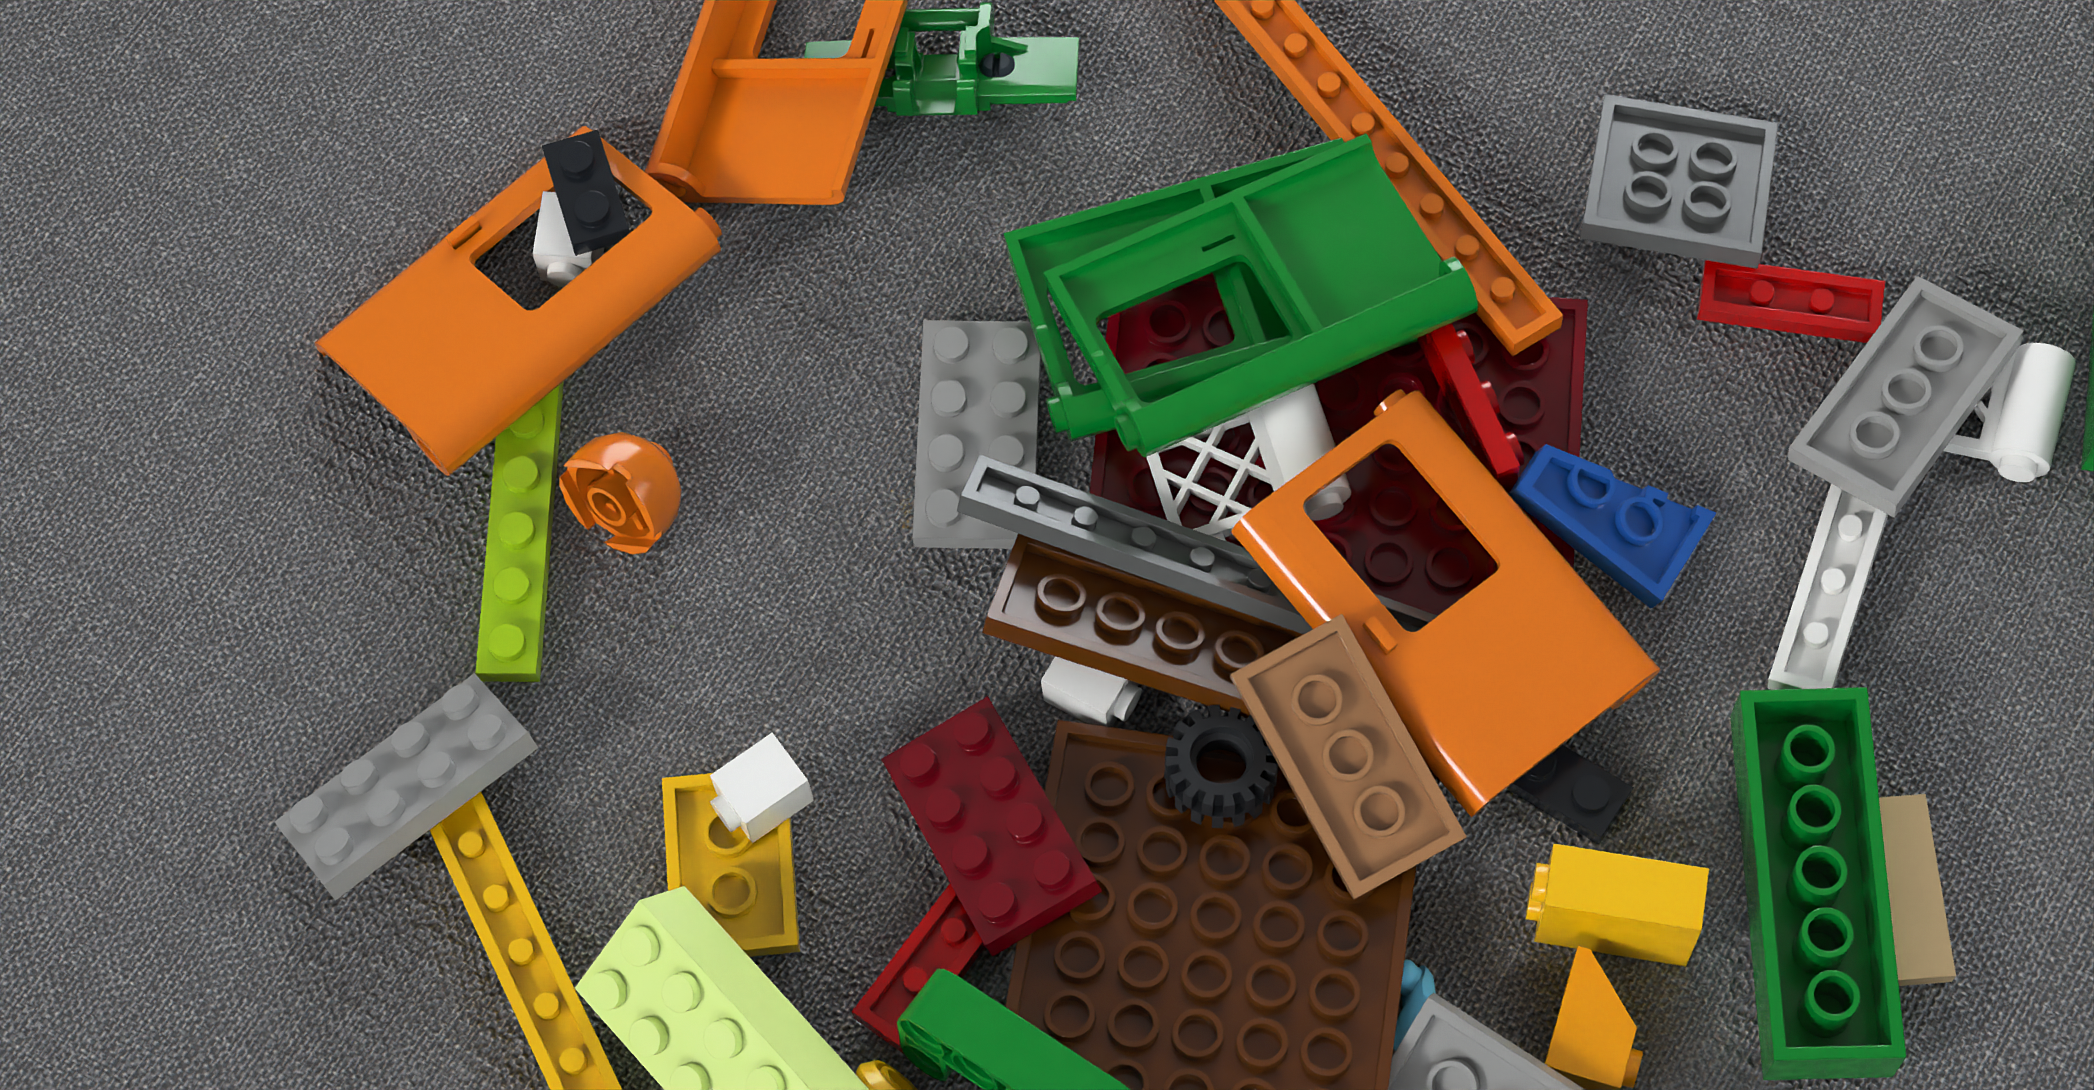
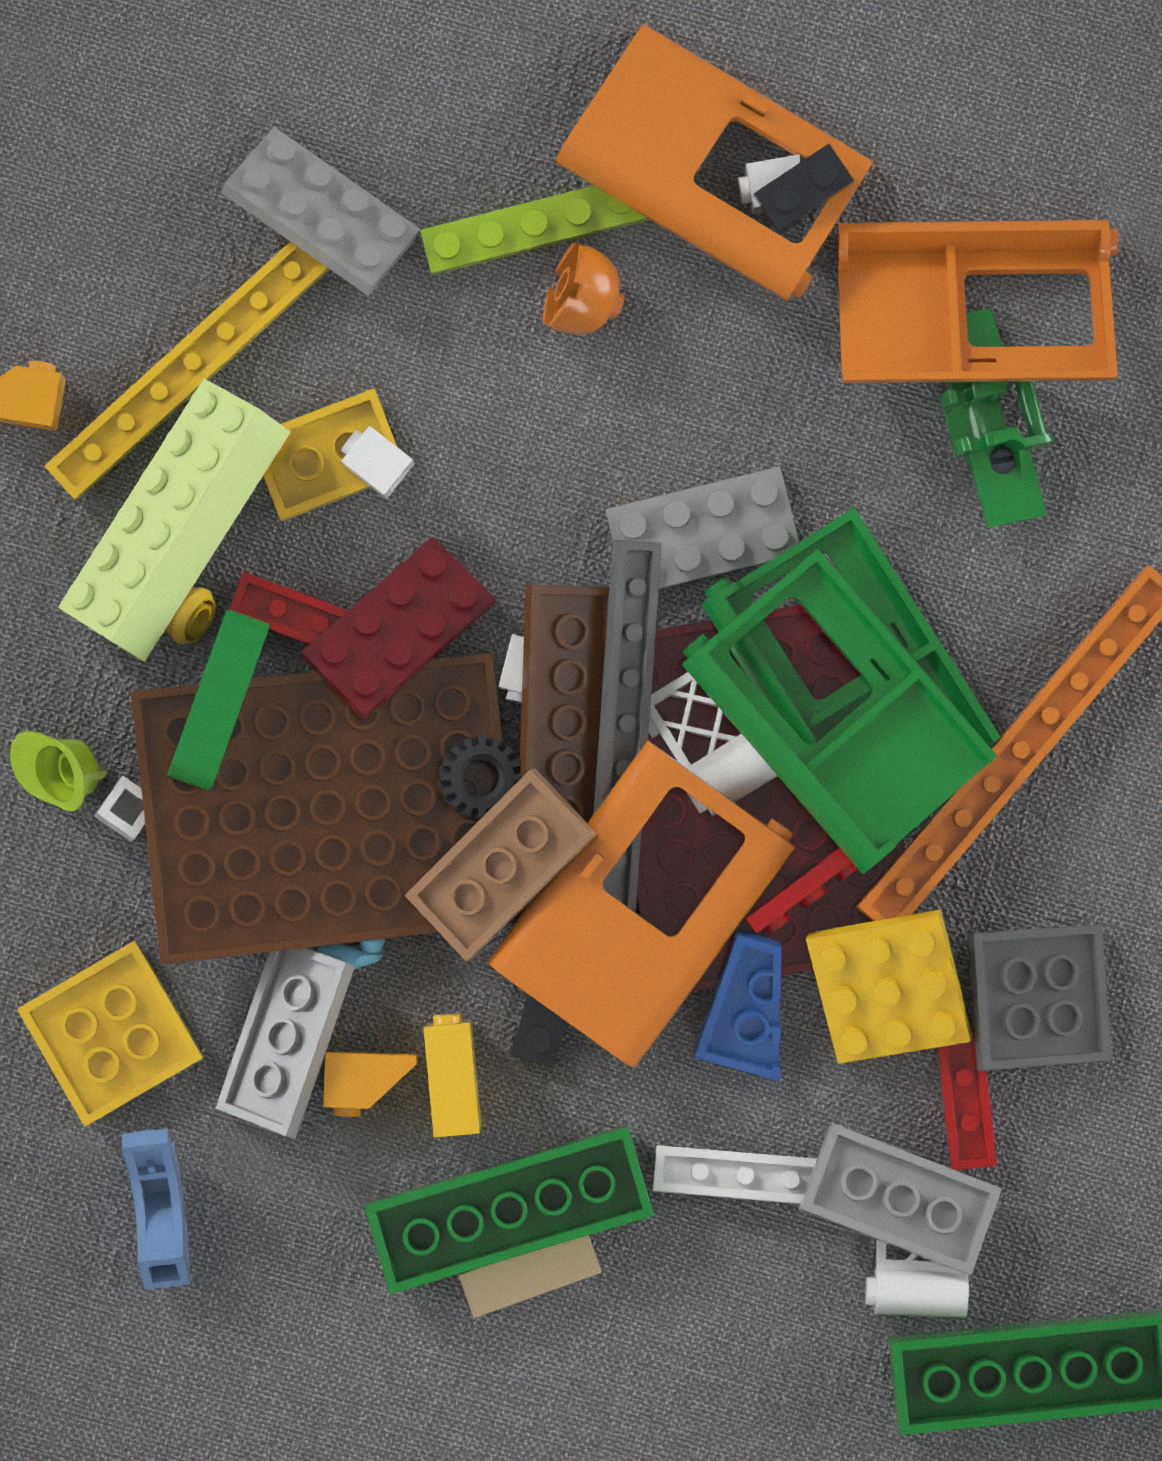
camera: 70 degrees right, 20 degrees up
(1626, 340) = (889, 986): none -> yellow plate

